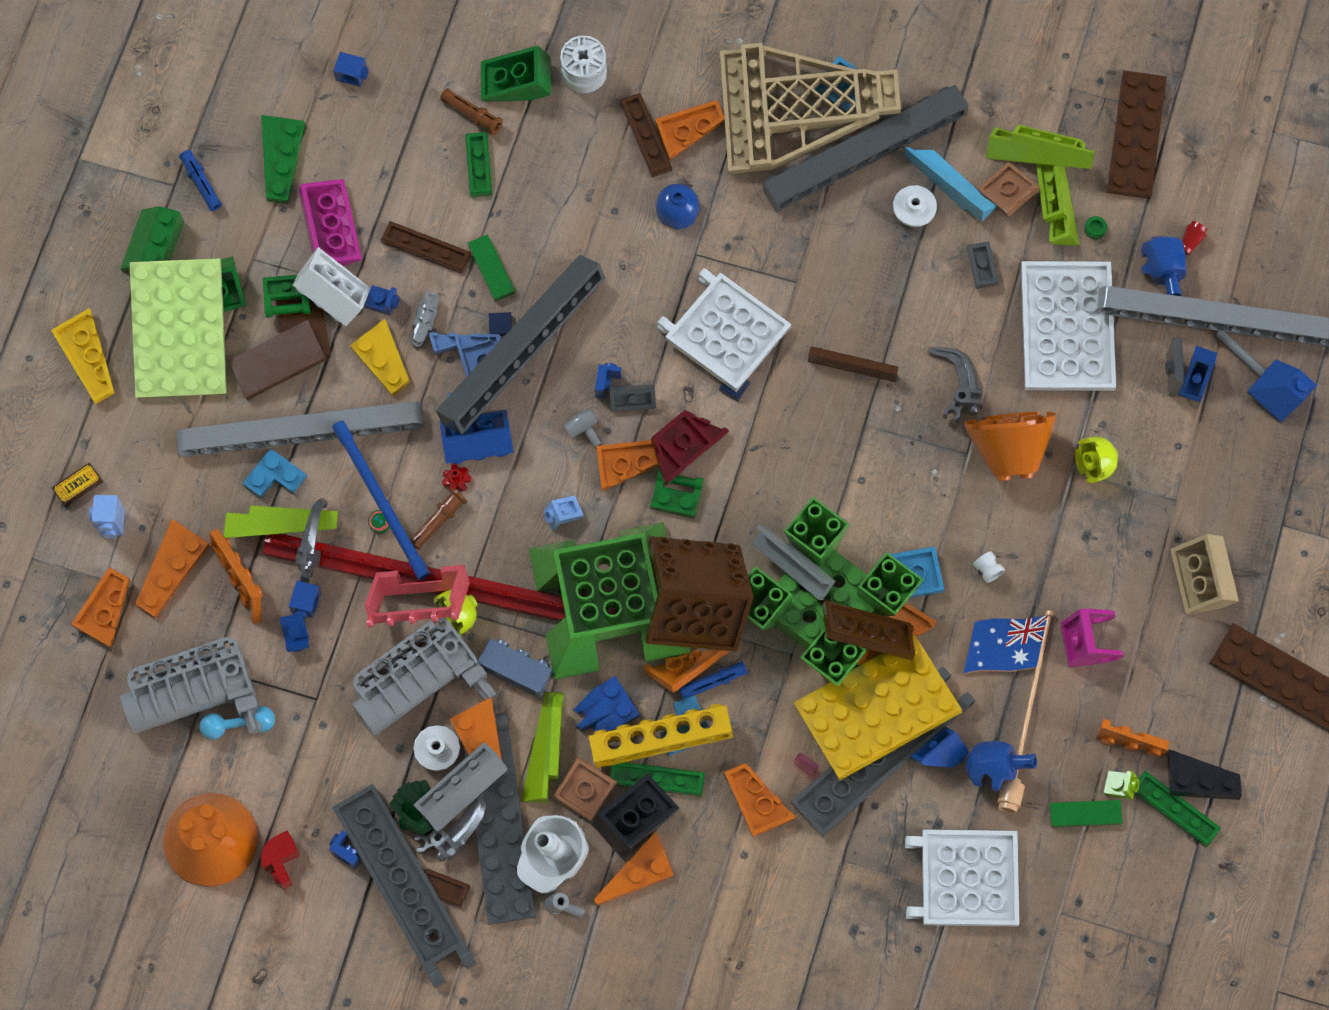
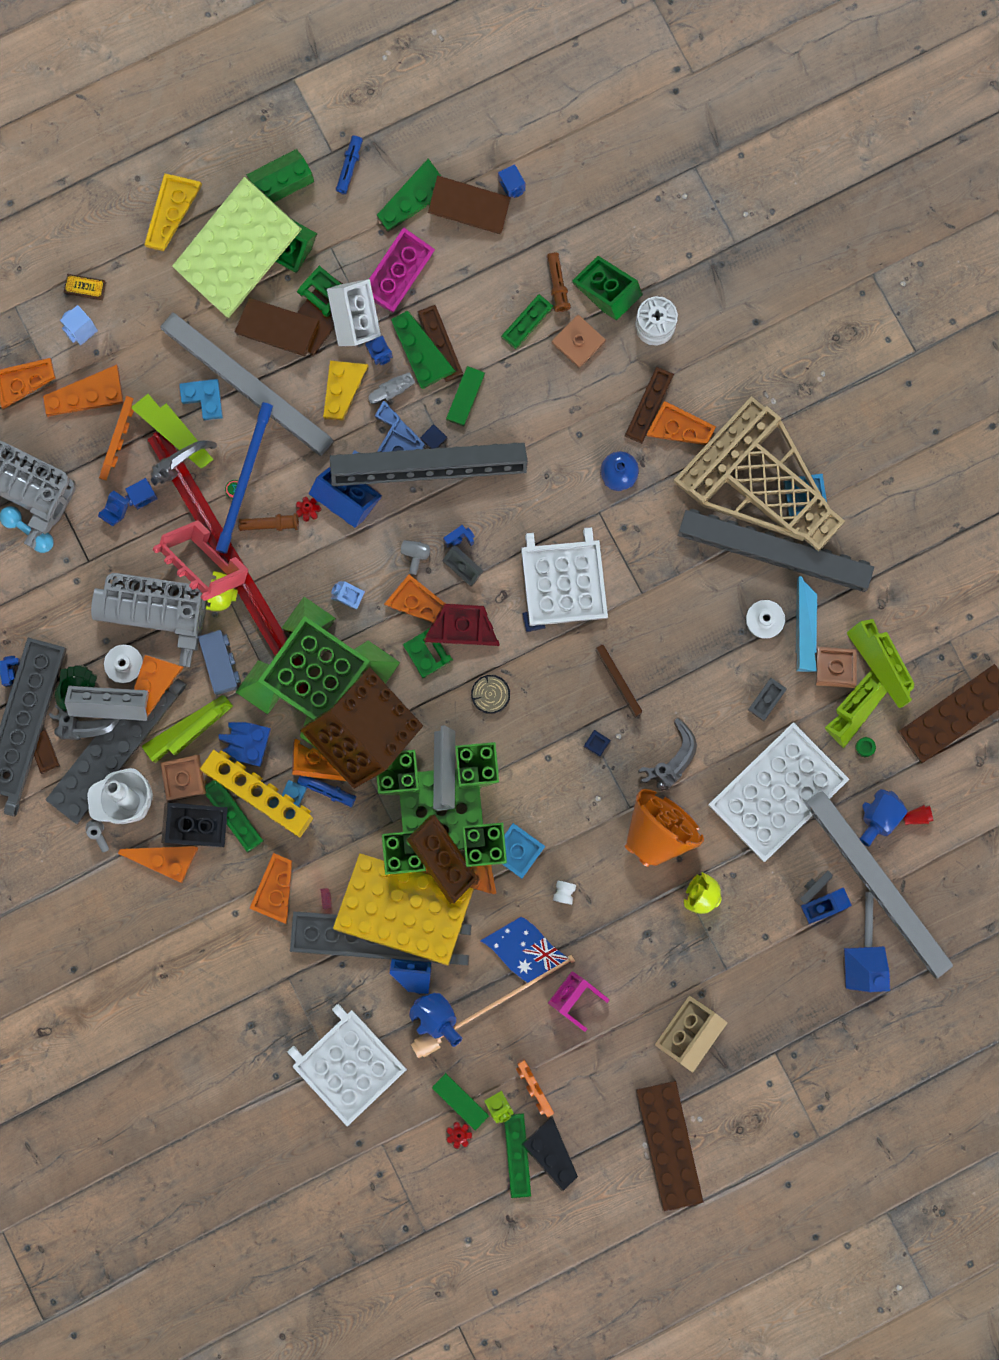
camera: 45 degrees right, 10 degrees up
(334, 118) = (469, 205): none -> reddish brown tile
(421, 267) = (421, 351): none -> green wing
(536, 140) = (578, 341): none -> nougat plate
(762, 475) = (490, 694): none -> dark tan tile
(887, 429) = (597, 743): none -> dark blue tile
(1113, 845) = (458, 1130): none -> red plant

